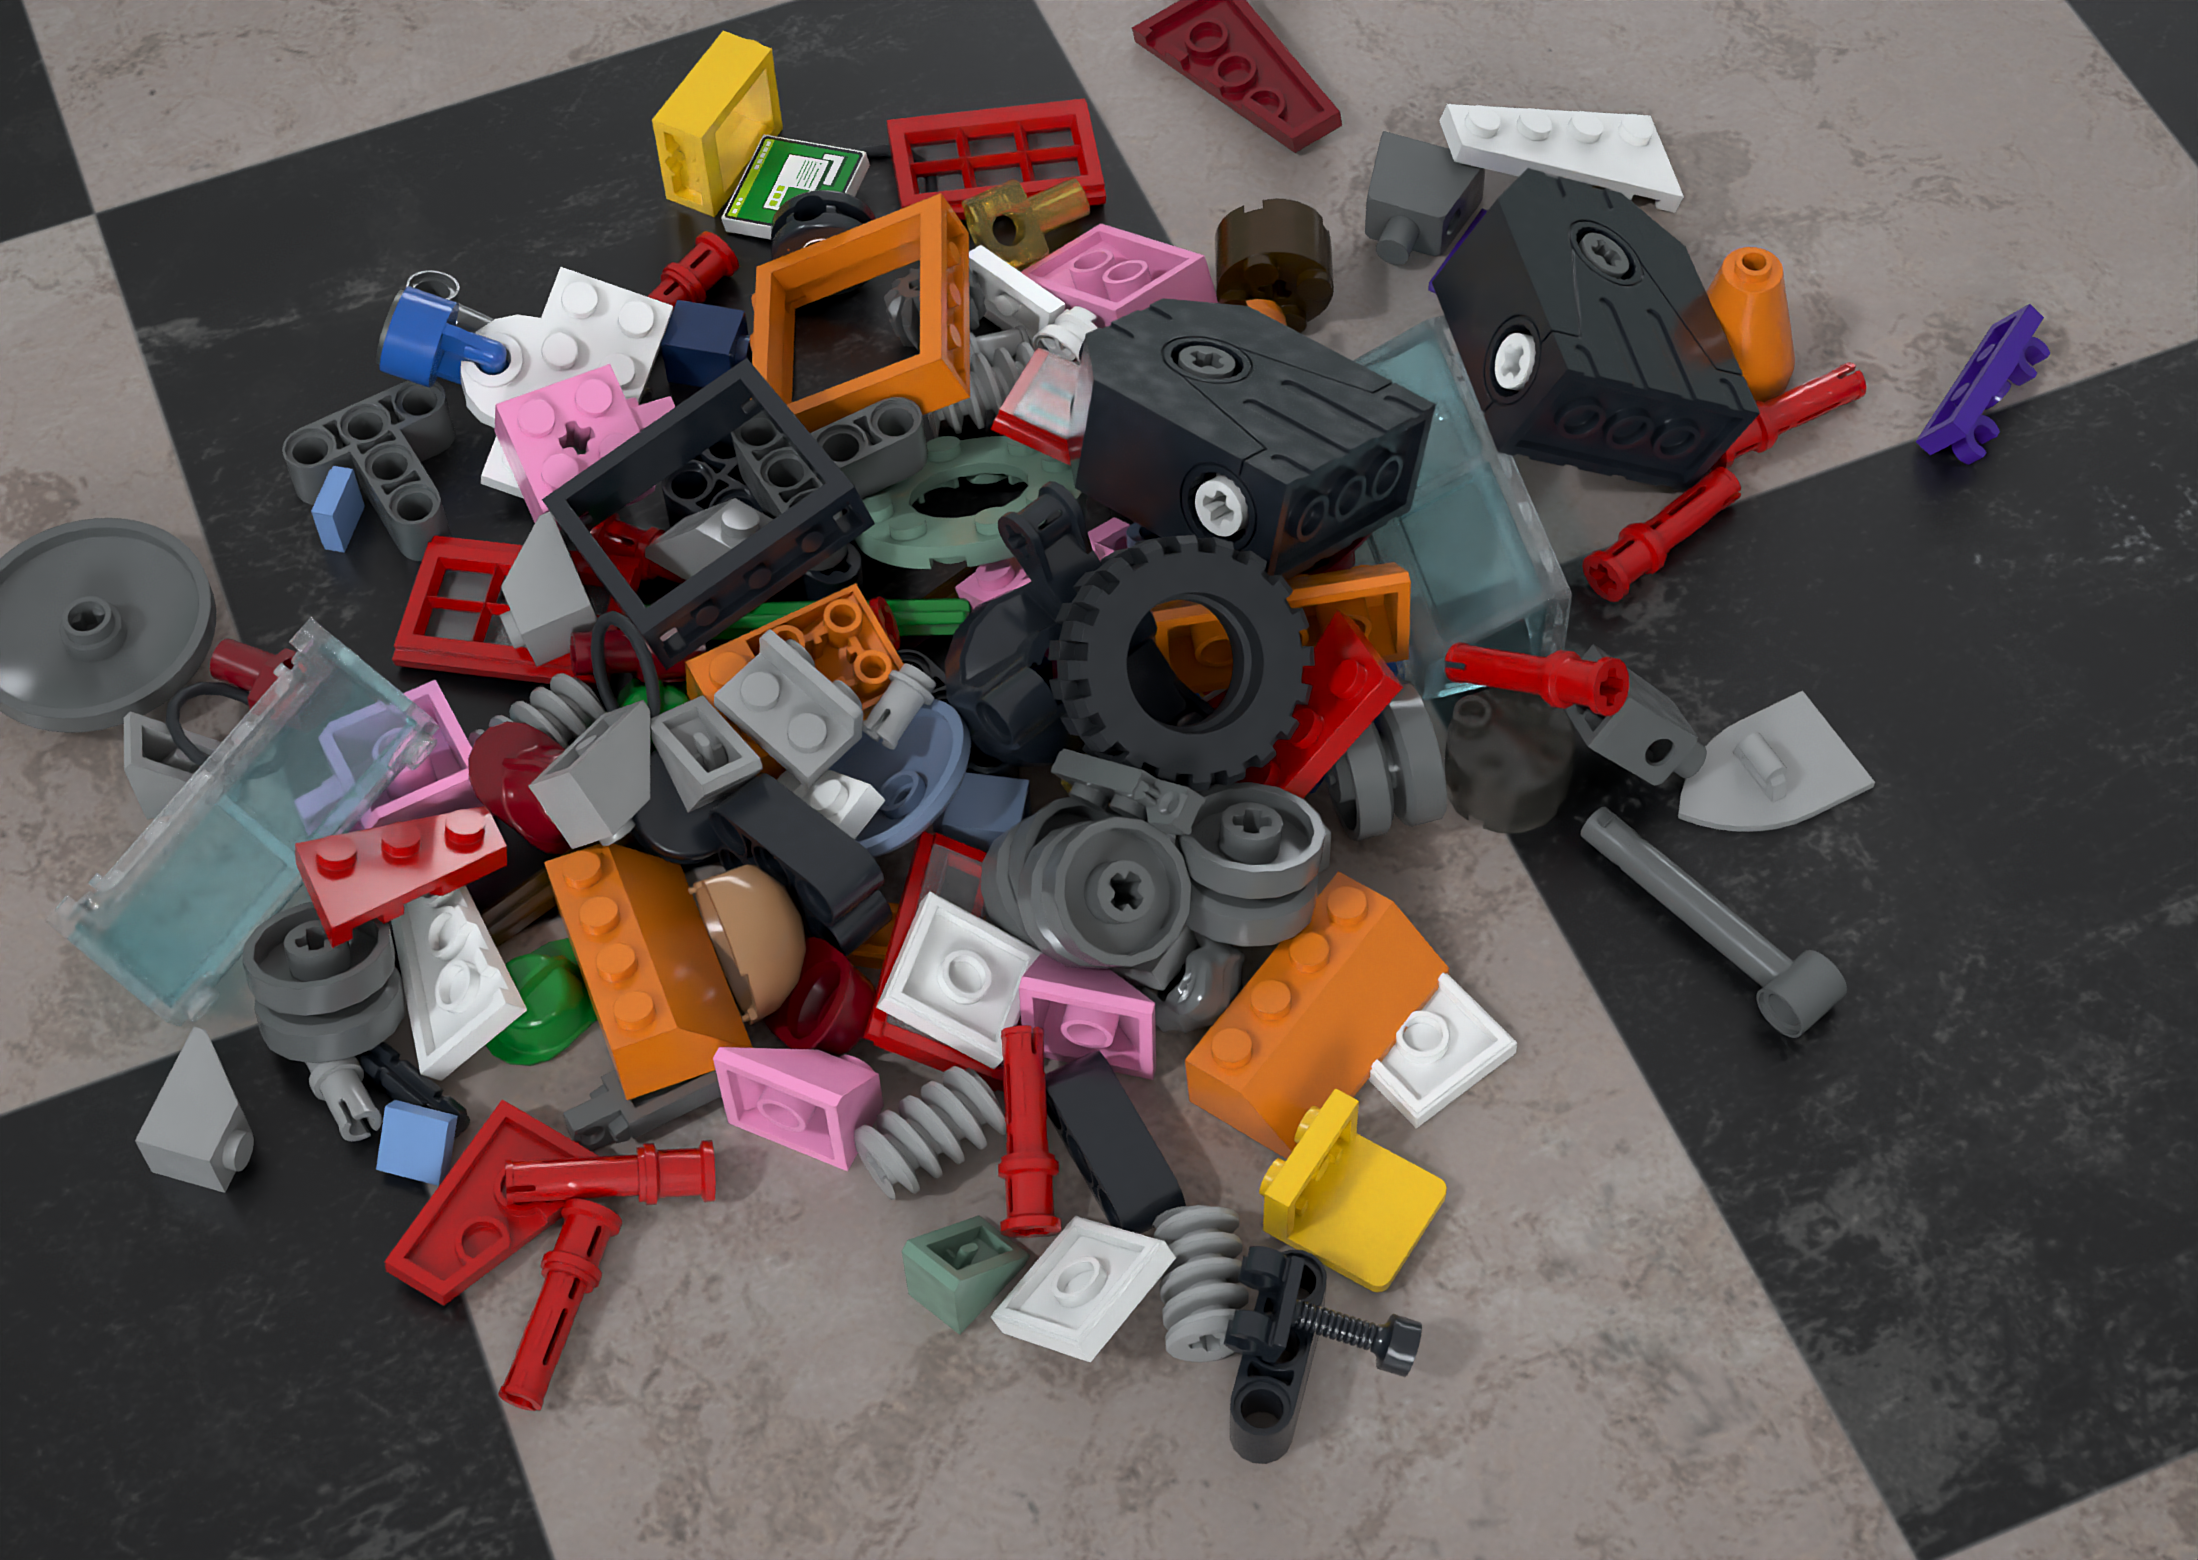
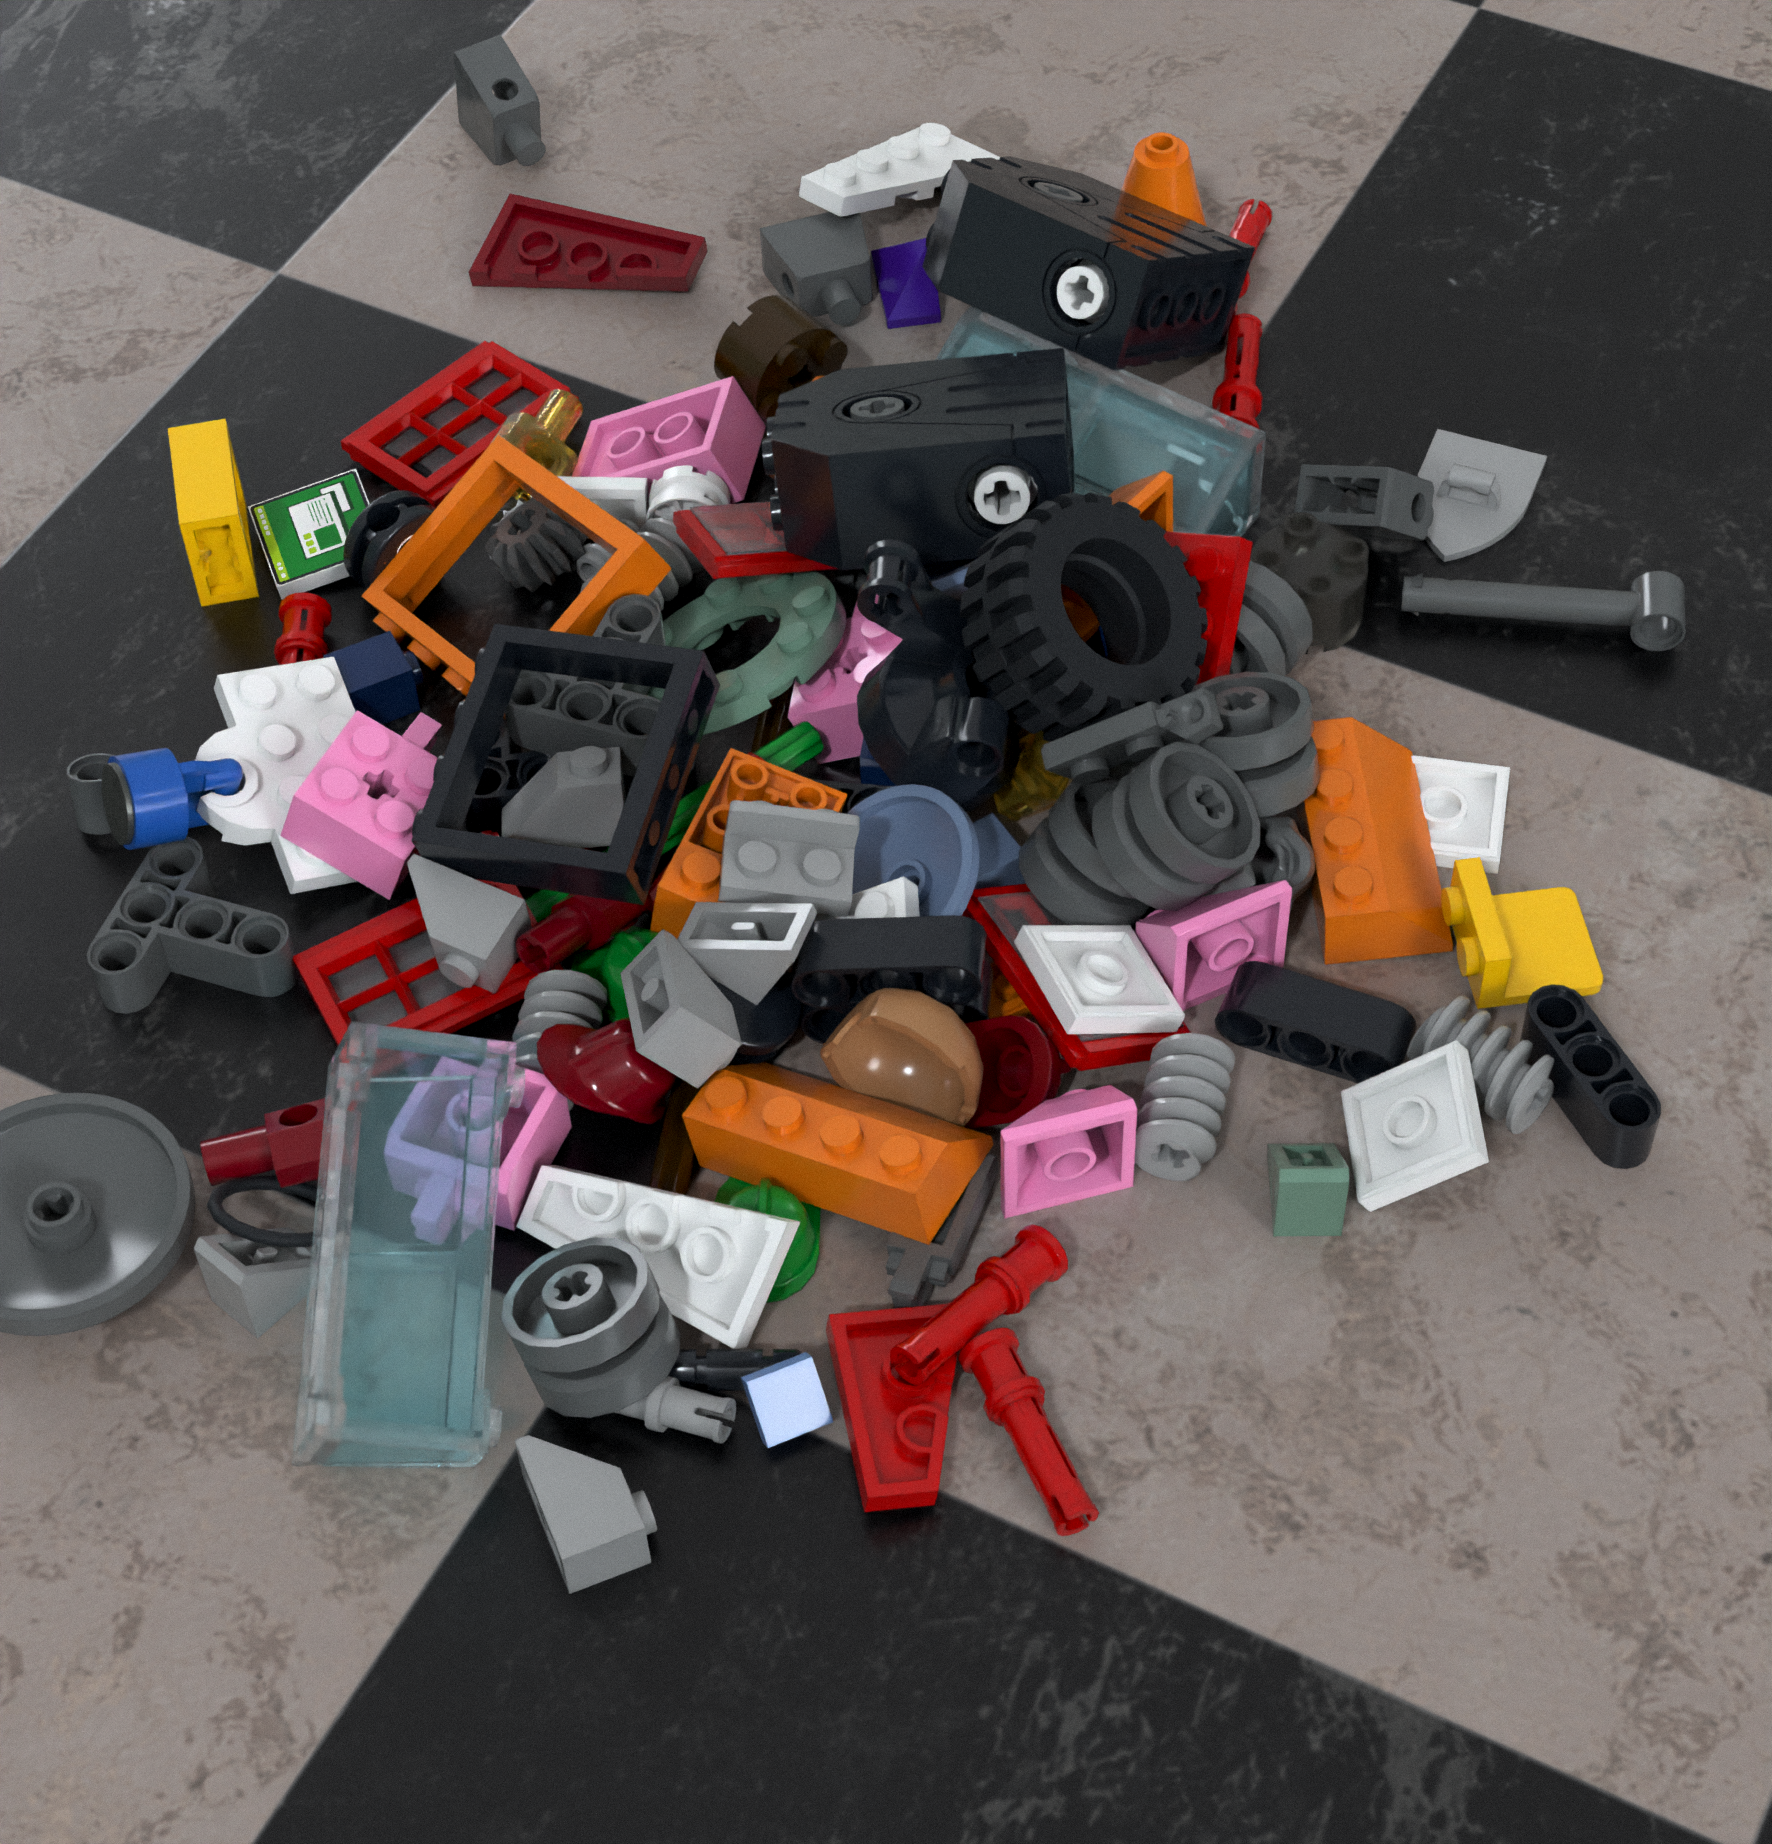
camera: 40 degrees left, 5 degrees down
(338, 508) = (181, 990): medium blue tile -> none
(386, 866) = (569, 1197): wing -> none
(642, 652) = (604, 878): black piece -> none
(899, 705) = (858, 795): light grey pin -> none
(1028, 1163) = (1279, 1073): red pin -> none
(1258, 1335) = (1591, 1043): black bar -> none
(1558, 678) = (1324, 488): red pin -> none
(1983, 384) = (1346, 166): dark purple plate -> none

